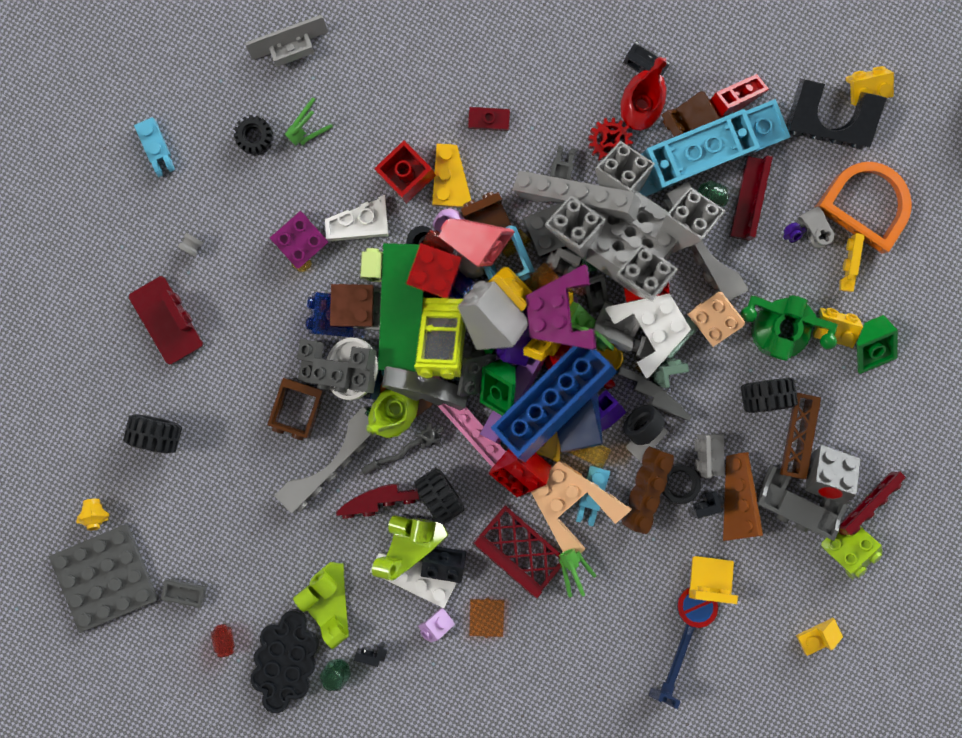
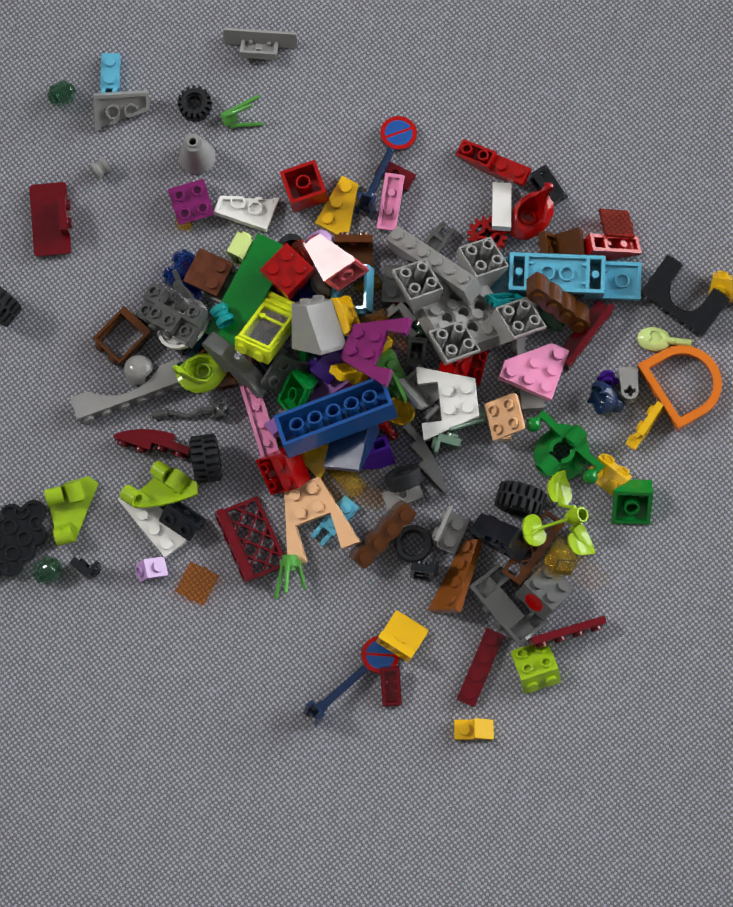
camera: 30 degrees right, 10 degrees down
(113, 185) = (61, 93): none -> clear green head
(177, 172) = (115, 106): none -> light grey wing
(281, 188) = (196, 155): none -> light grey cone
(328, 435) = (137, 369): none -> light grey hair
(342, 341) = (186, 297): none -> dark grey helmet
(388, 346) = (222, 315): none -> teal wheel
(473, 76) = (398, 135): none -> piece
(498, 148) = (390, 201): none -> bright pink plate
(581, 63) = (493, 164): none -> red slope
(611, 104) = (501, 206): none -> white tile
(664, 200) = (499, 299): none -> teal tile
(718, 178) = (558, 302): none -> reddish brown brick
(723, 633) = (390, 686): none -> dark red plate
(724, 257) = (535, 370): none -> bright pink plate
(732, 70) = (616, 223): none -> clear red piece
(766, 440) = (500, 536): none -> black wedge
(798, 573) = (480, 667): none -> dark red plate
(801, 254) = (605, 398): none -> dark blue piece
(823, 169) = (657, 339): none -> yellowish green piece
(833, 435) = (560, 558): none -> clear yellow slope
(835, 391) = (579, 539): none -> lime plant

